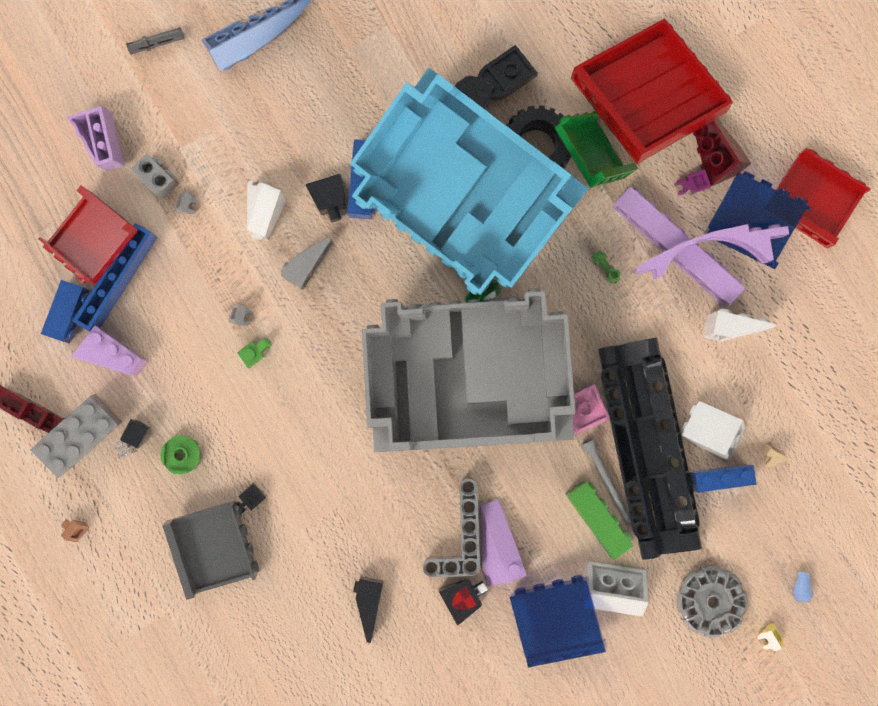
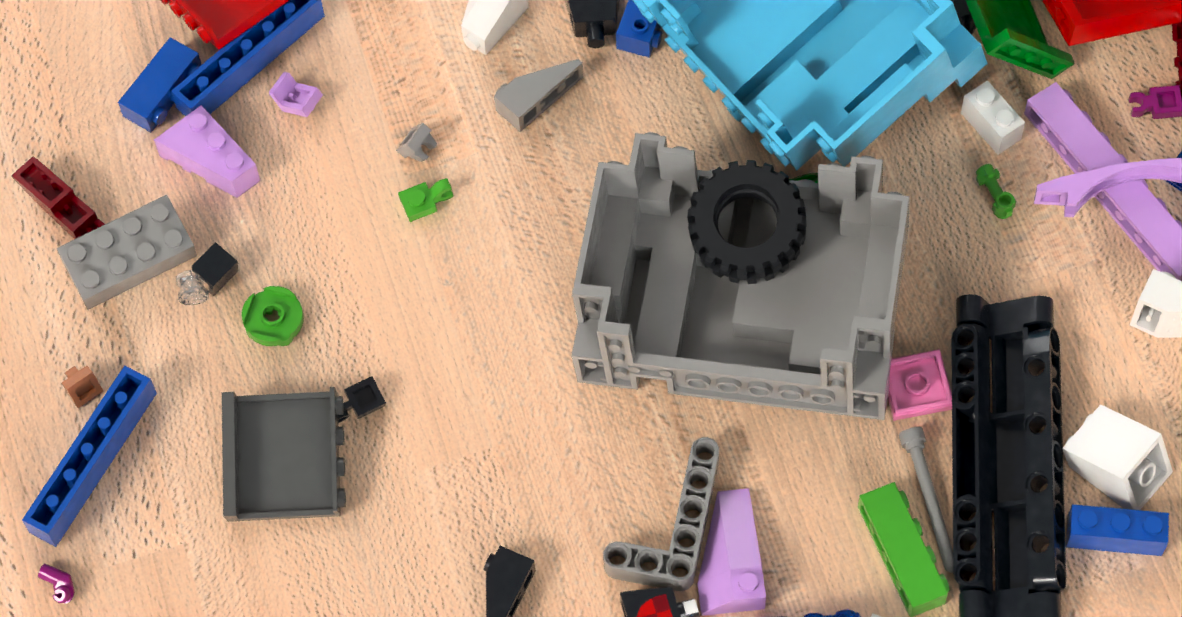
camera: 20 degrees right, 20 degrees down
(92, 578) = (89, 456): none -> blue brick
(100, 659) = (61, 582): none -> magenta arm
(153, 300) = (293, 96): none -> lavender bracket
(469, 367) = (739, 183): none -> black tyre
(595, 217) = (992, 117): none -> white brick

